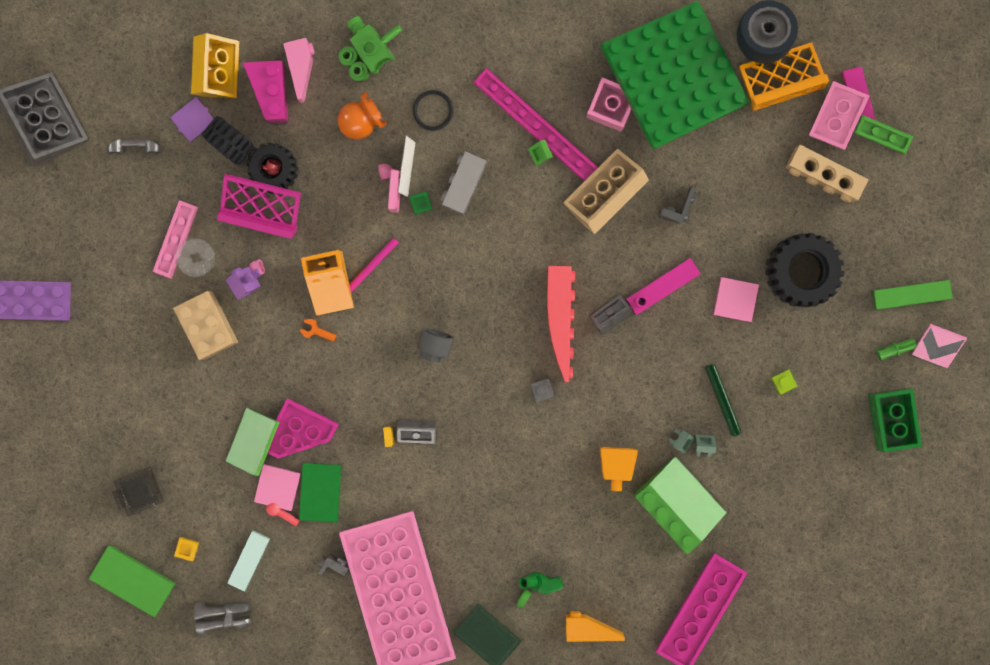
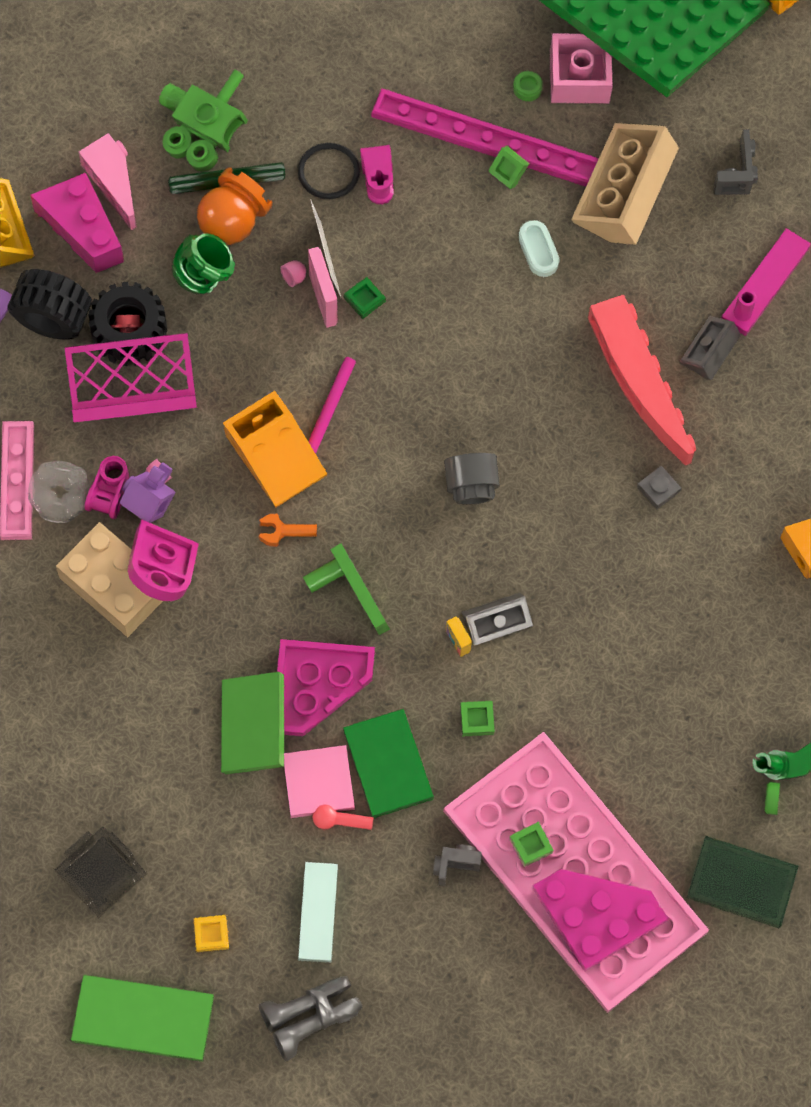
camera: 30 degrees left, 20 degrees down
(221, 268) = (106, 491): none -> dark pink piece
(235, 328) = (161, 558): none -> dark pink tile
(323, 147) = (199, 259): none -> green helmet
(341, 369) = (342, 566): none -> bright green piece
(374, 93) = (209, 179): none -> dark green axle
(376, 575) = (531, 844): none -> bright green plate
(379, 487) = (477, 718): none -> bright green plate
(397, 627) = (597, 914): none -> dark pink plate
(461, 121) = (378, 171): none -> dark pink piece
(463, 183) = (416, 246): light grey brick -> none
(537, 211) = (538, 248): none -> light aqua tile
(576, 100) = (527, 86): none -> bright green tile

